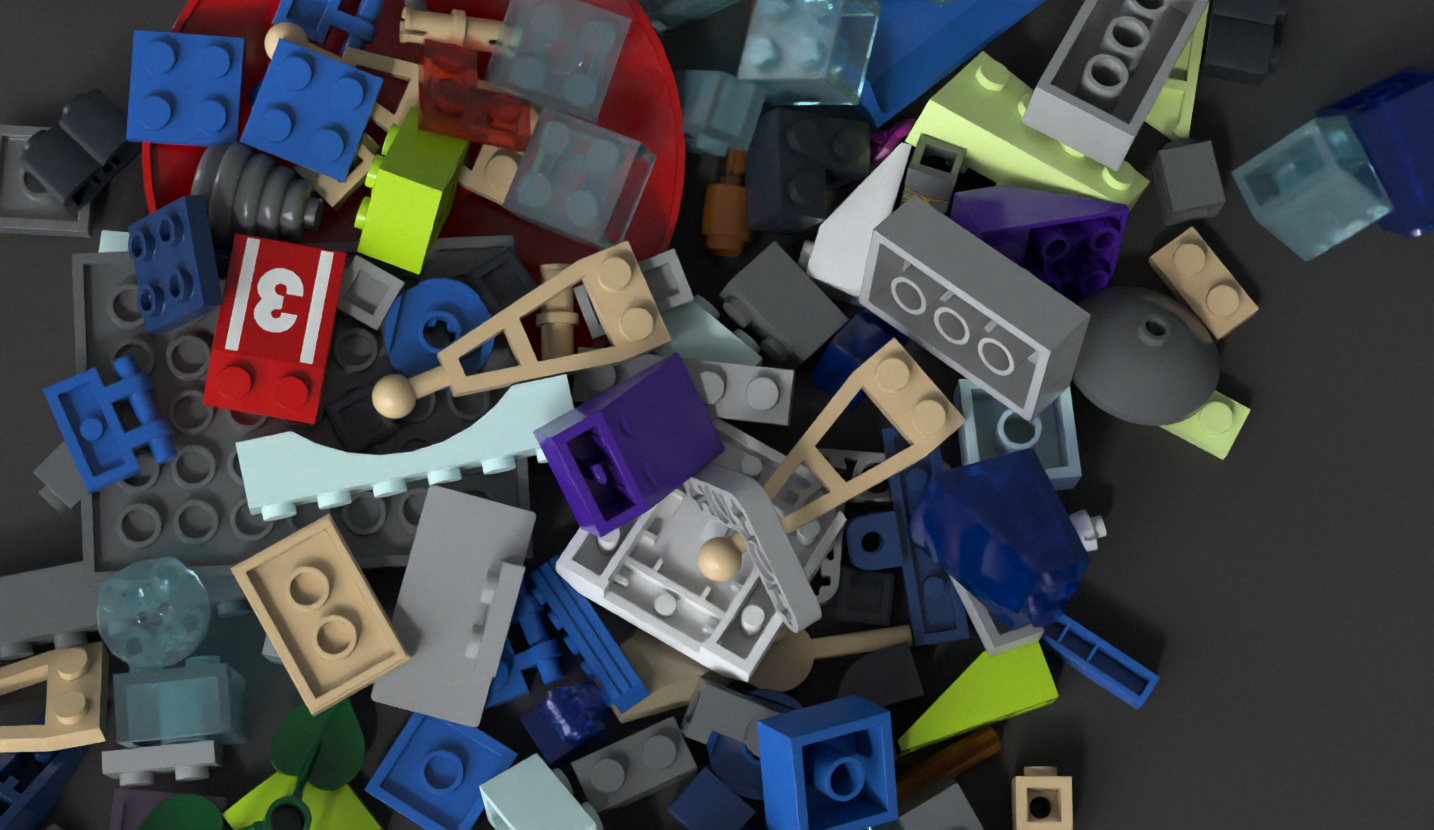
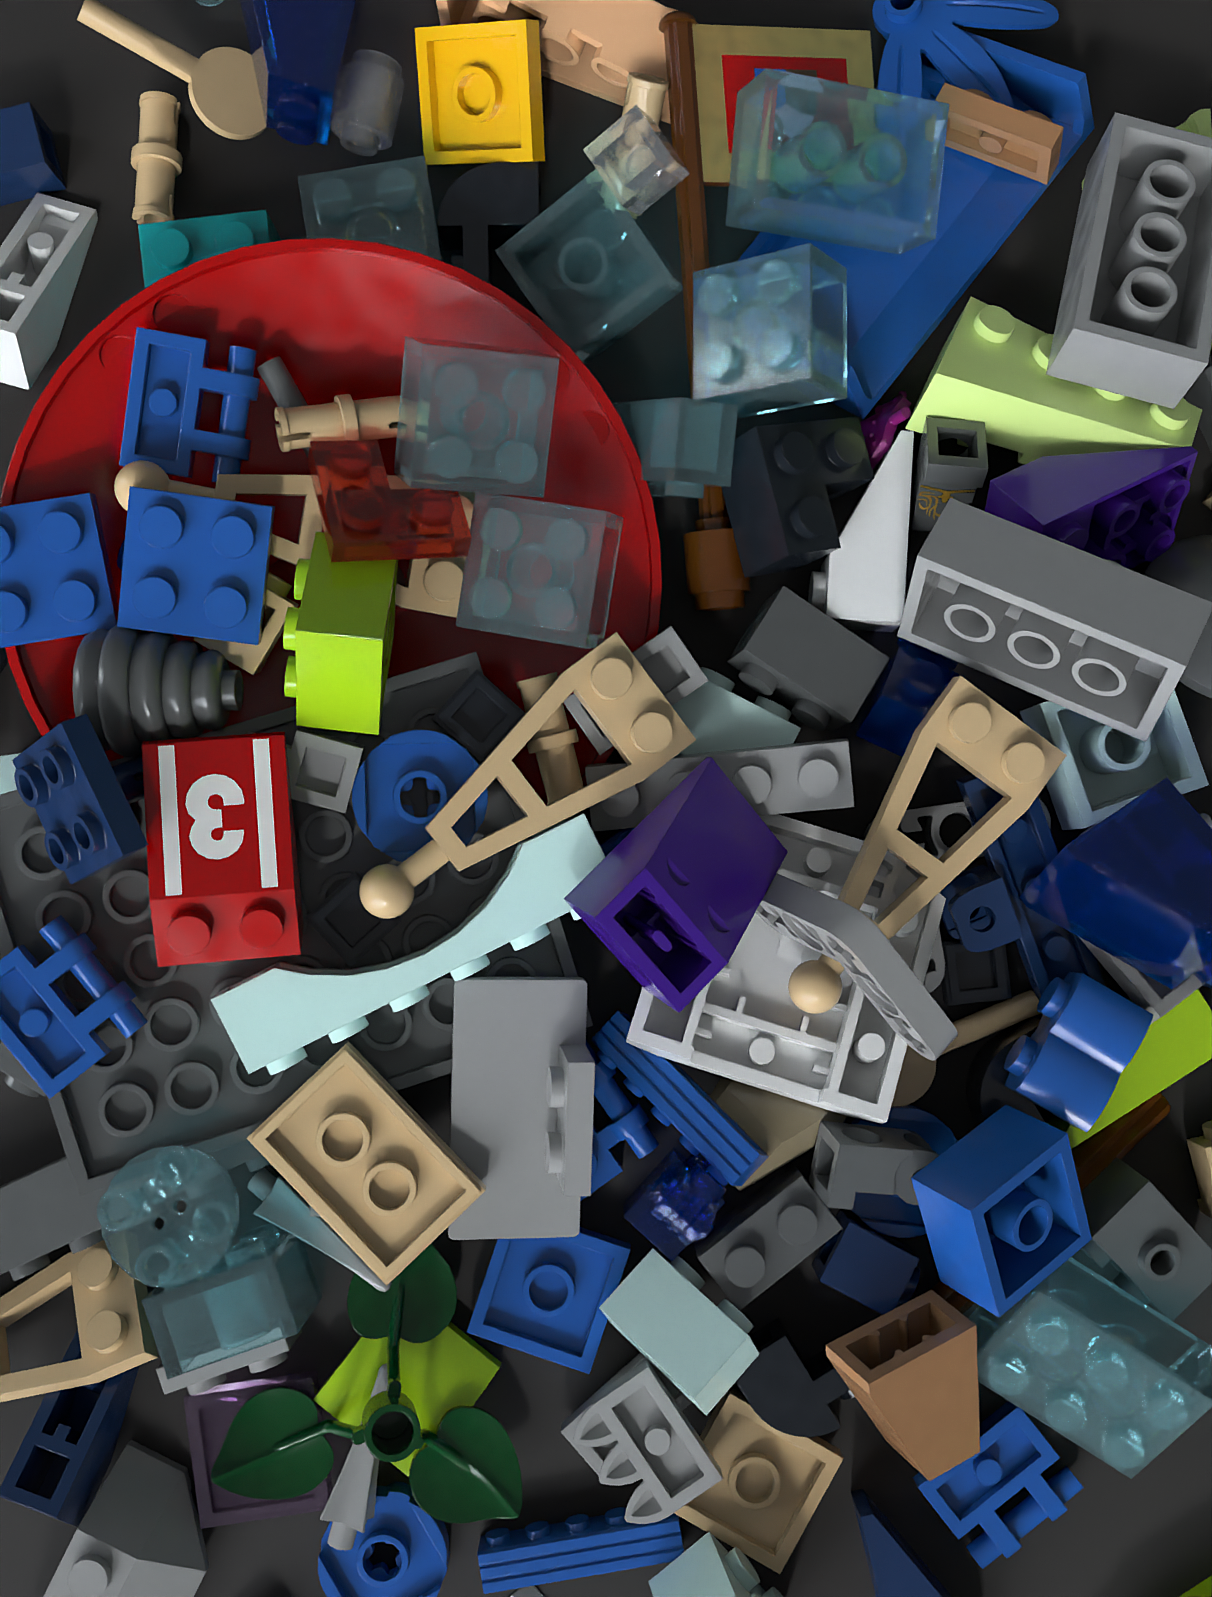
camera: 10 degrees left, 10 degrees up
(245, 655) = (291, 1212): none -> light grey piece
(921, 660) = (1076, 1049): none -> blue brick

